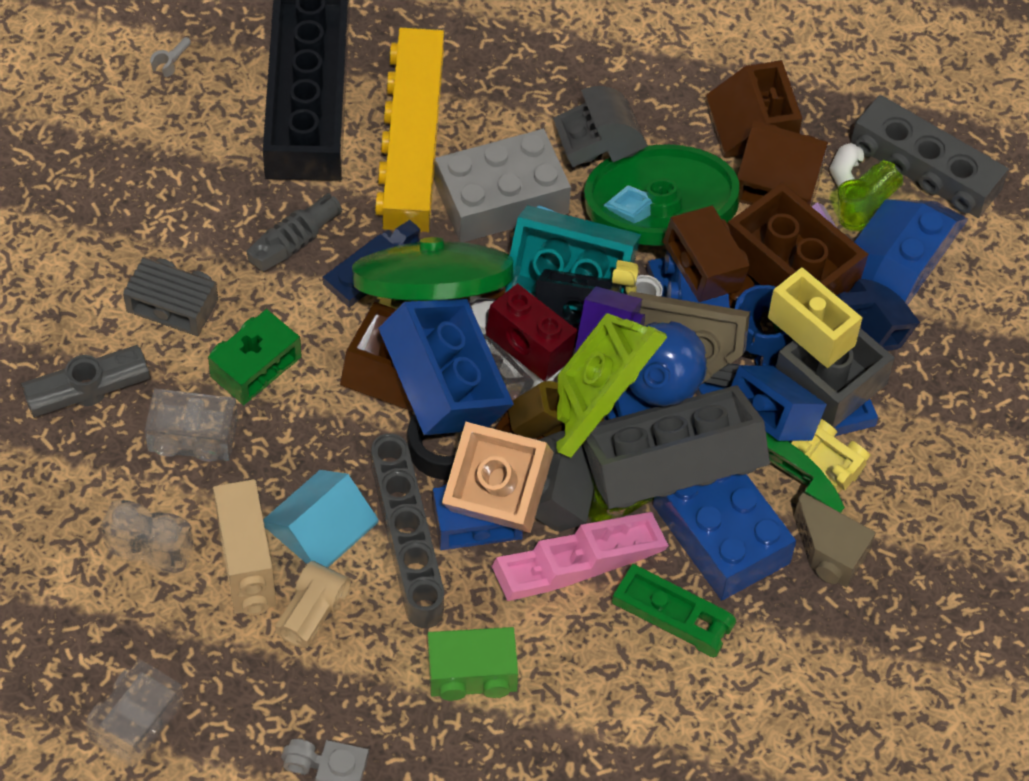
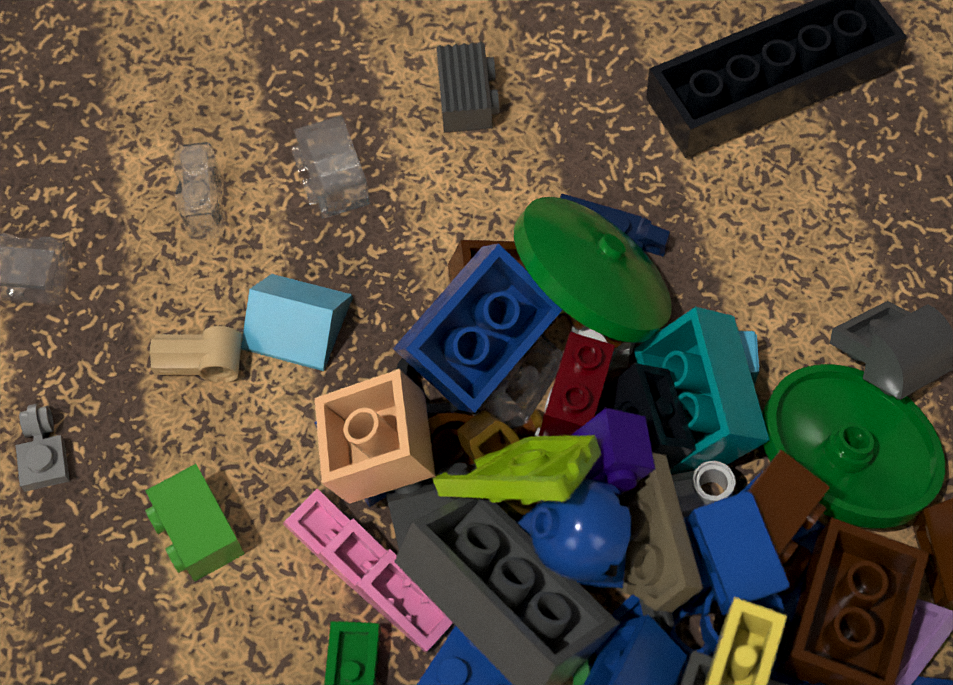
camera: 70 degrees right, 5 degrees up
(105, 375) = (338, 70): dark grey piece -> none
(245, 547) = (213, 266): tan window -> none
(254, 356) = (436, 181): green brick -> none
(292, 233) = (586, 144): dark grey hinge -> none
(407, 547) = (291, 402): dark grey beam -> none
(413, 128) = (781, 184): yellow brick -> none
(495, 181) = (766, 289): light grey brick -> none
(626, 274) = (697, 450): light yellow hand -> none
(630, 204) = (819, 419): medium azure tile -> none
(731, 282) = (736, 550): none -> blue panel

